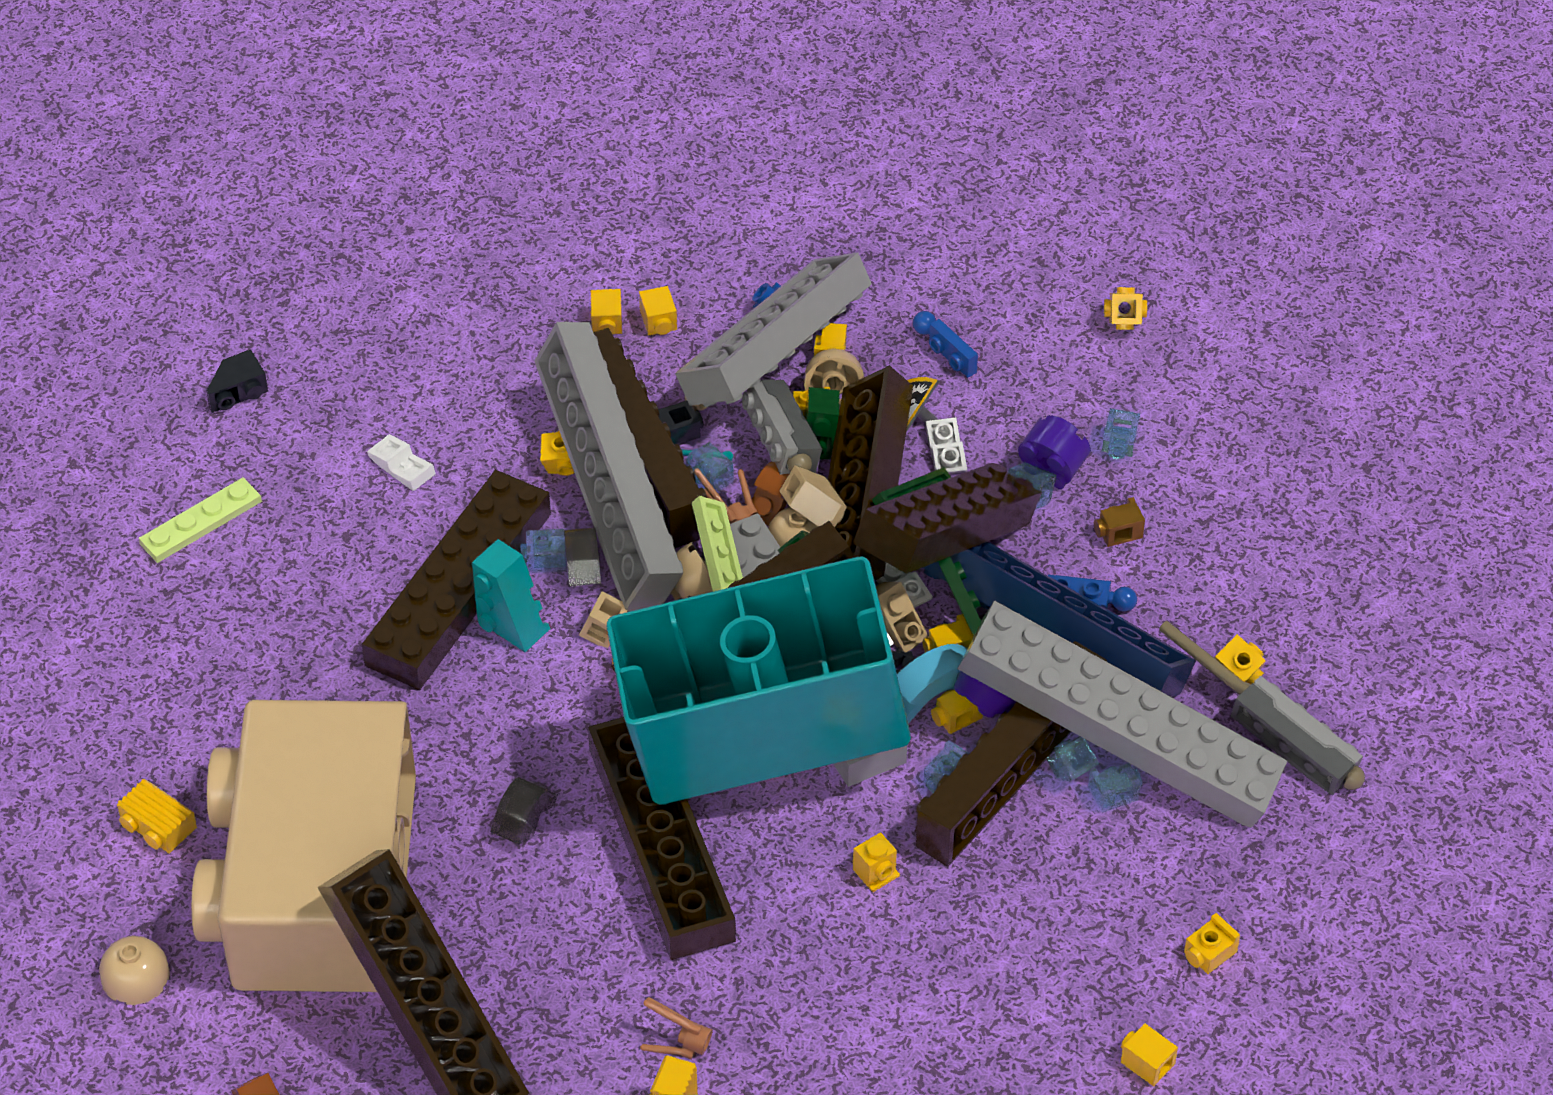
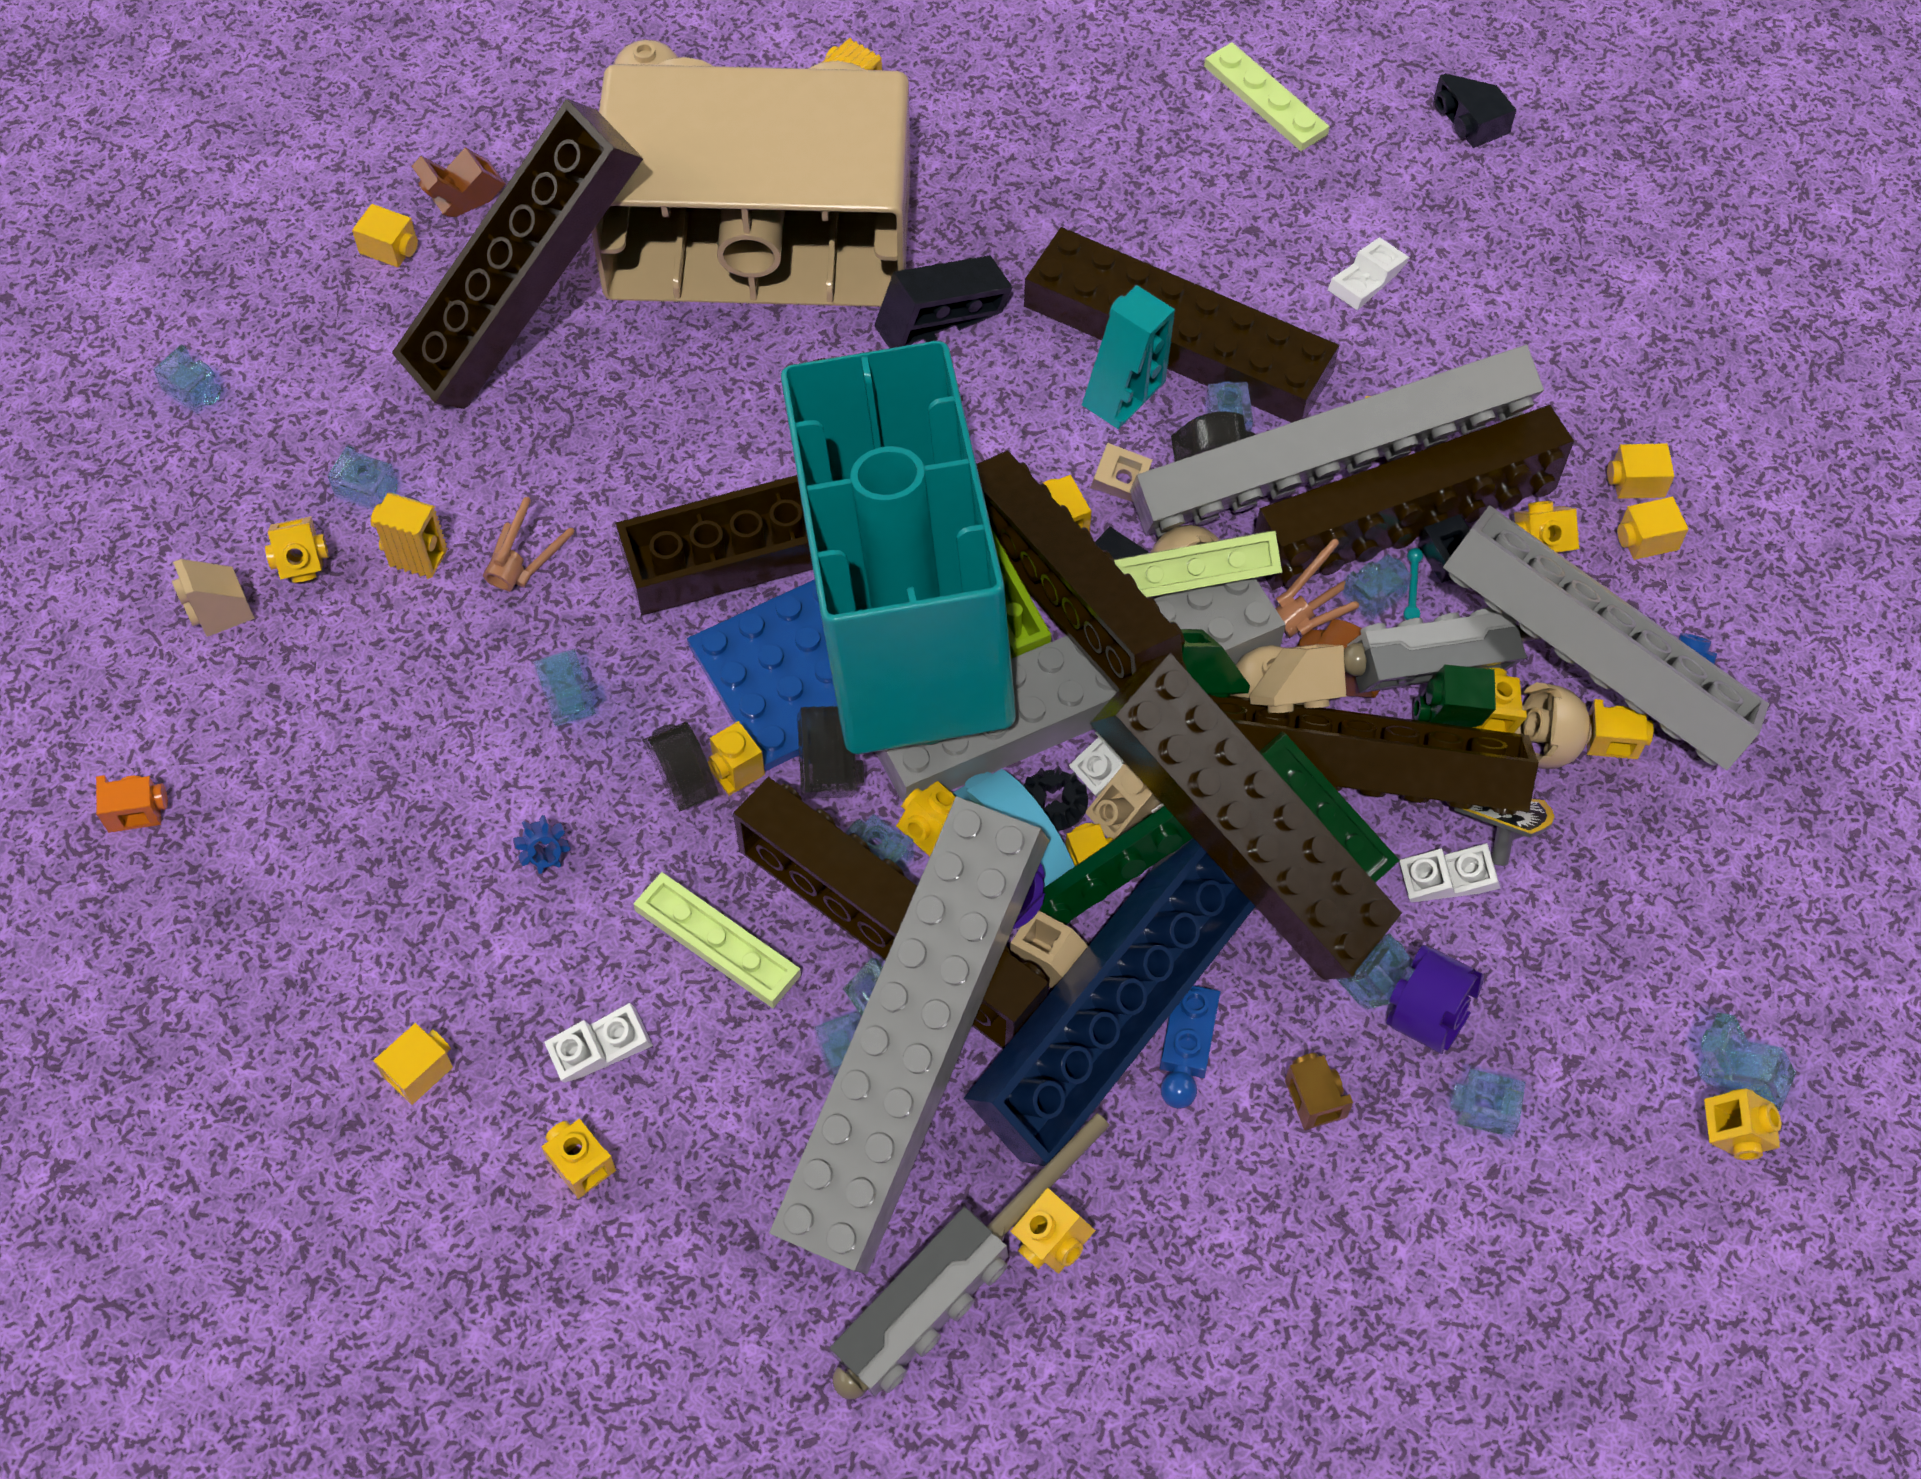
camera: 90 degrees right, 10 degrees up
(434, 739) = (940, 297): none -> black wedge
(660, 366) = (1550, 525): none -> yellow brick
(783, 833) = (769, 667): none -> blue plate
(817, 981) = (564, 687): none -> clear light blue brick
(872, 798) = (824, 761): none -> clear smoke brick
(881, 891) = (681, 765): none -> clear smoke brick
(929, 731) = (926, 815): none -> yellow brick
(947, 342) = (1643, 873): blue plate -> none
(958, 985) = (536, 854): none -> blue gear
(1028, 871) = (717, 940): none -> yellowish green plate
(1084, 304) = (1740, 1064): none -> clear light blue brick
(1116, 943) = (595, 1046): none -> white slope

